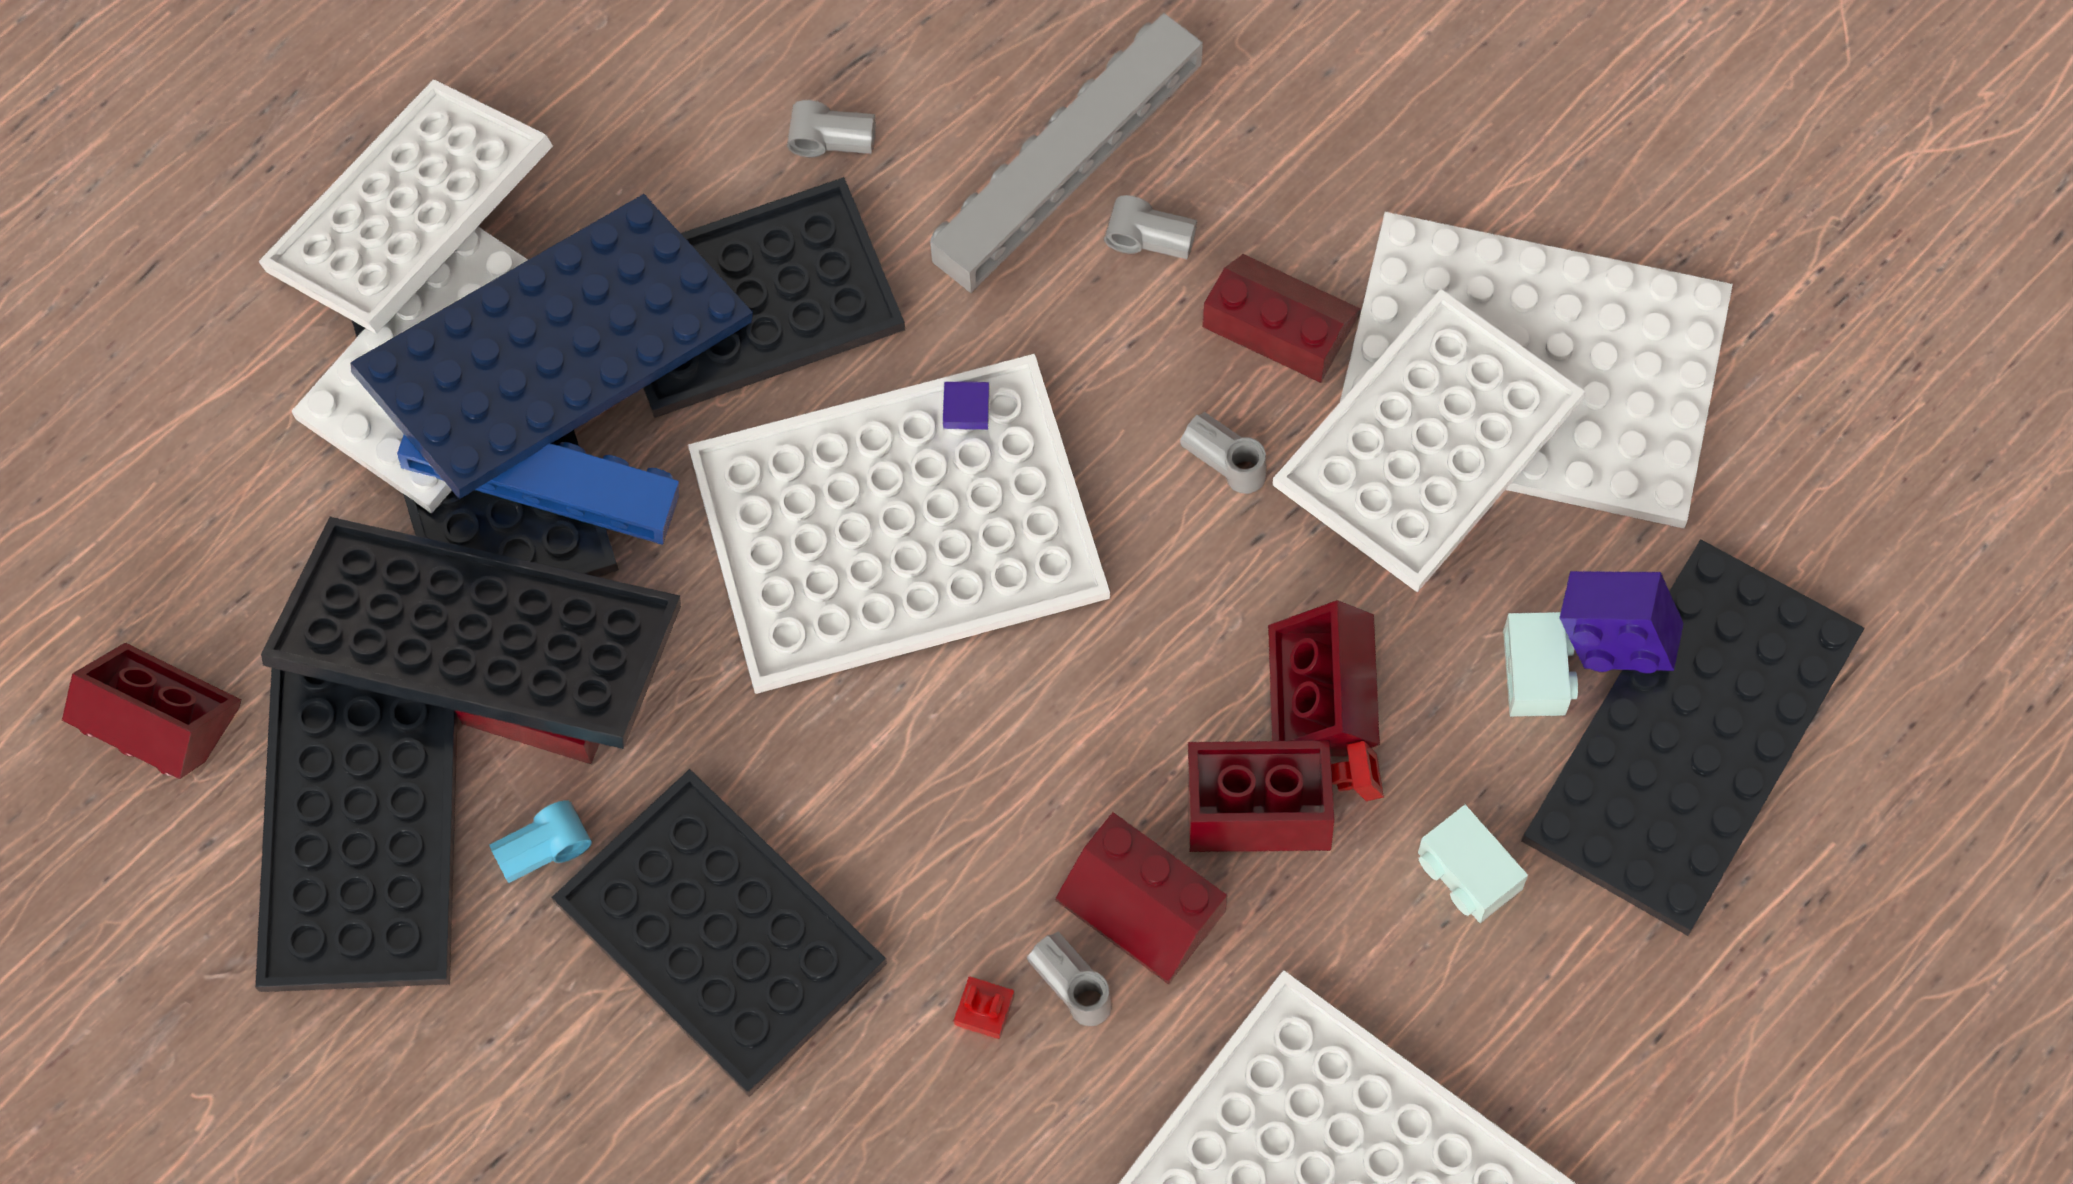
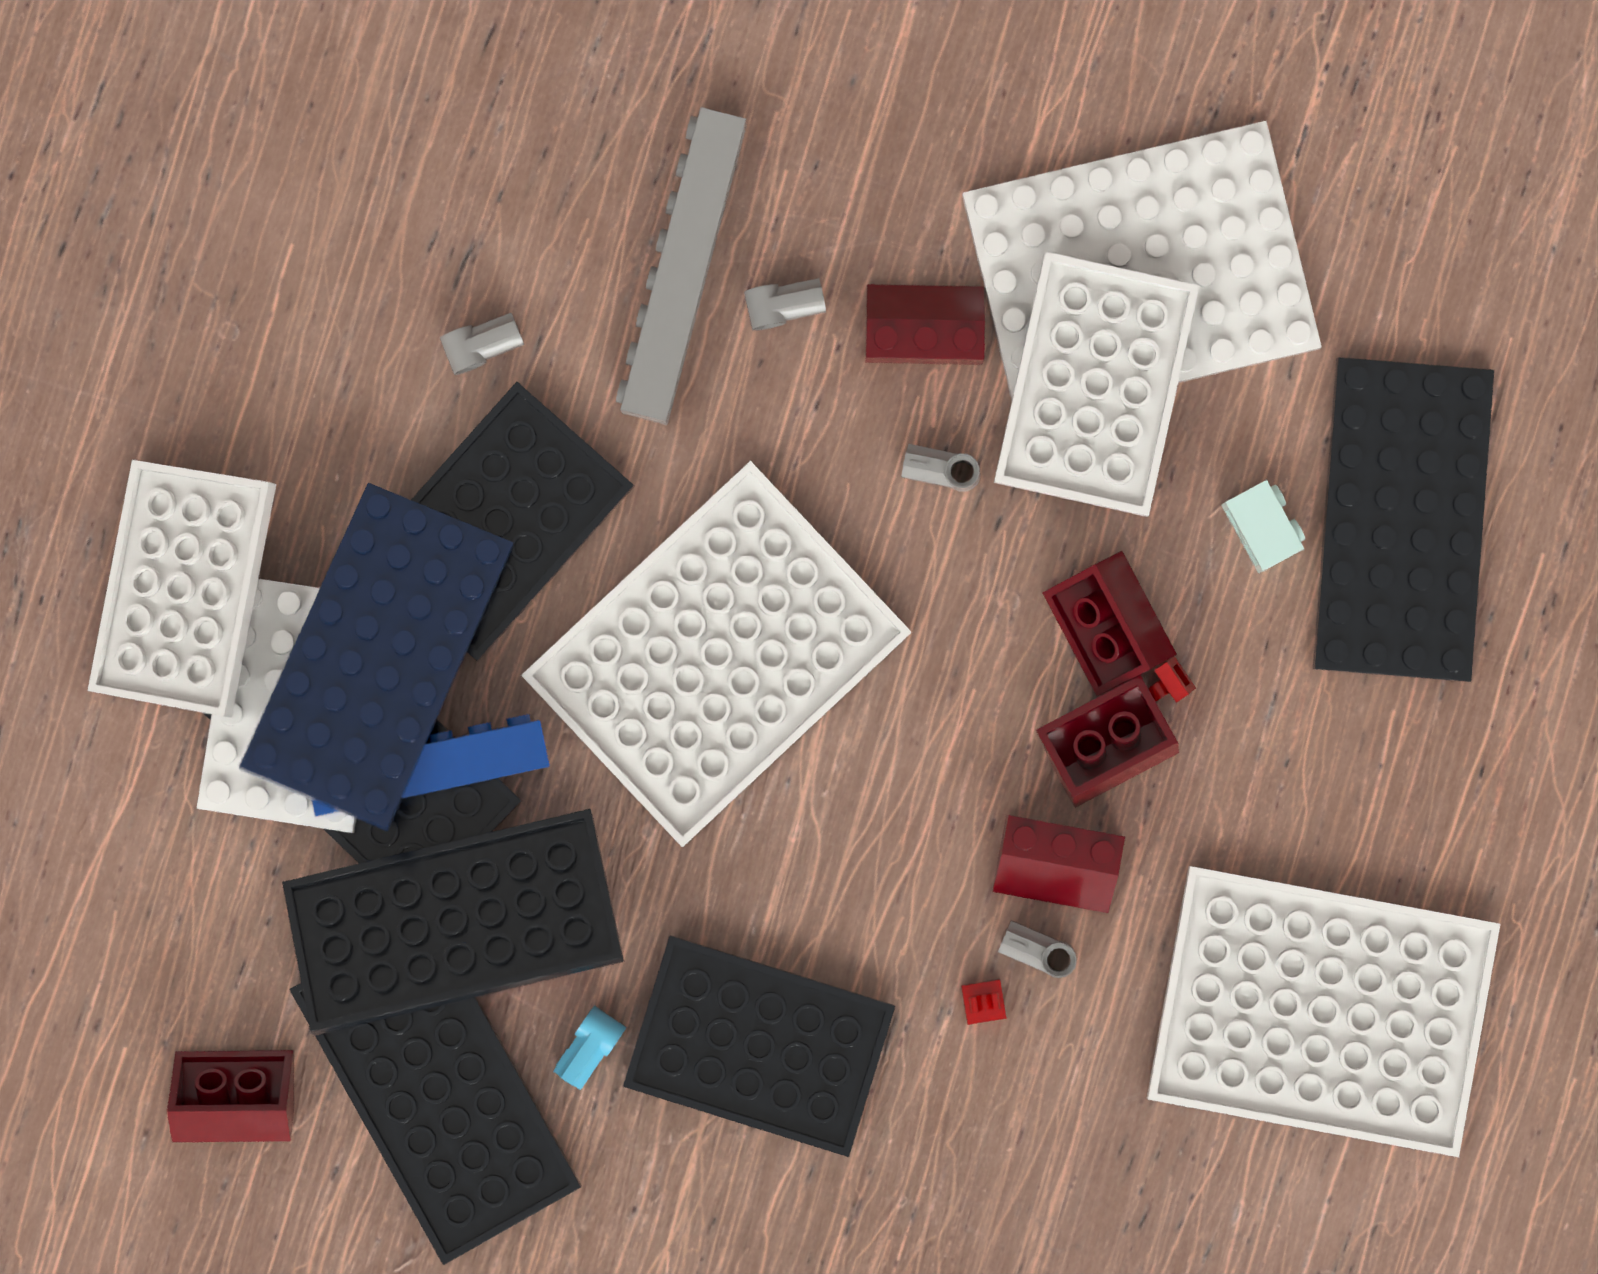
camera: 30 degrees left, 20 degrees up
(966, 405) = (722, 535): dark purple tile -> none
(1471, 864) = (1288, 713): light aqua brick -> none
(1621, 621) = (1316, 471): dark purple brick -> none

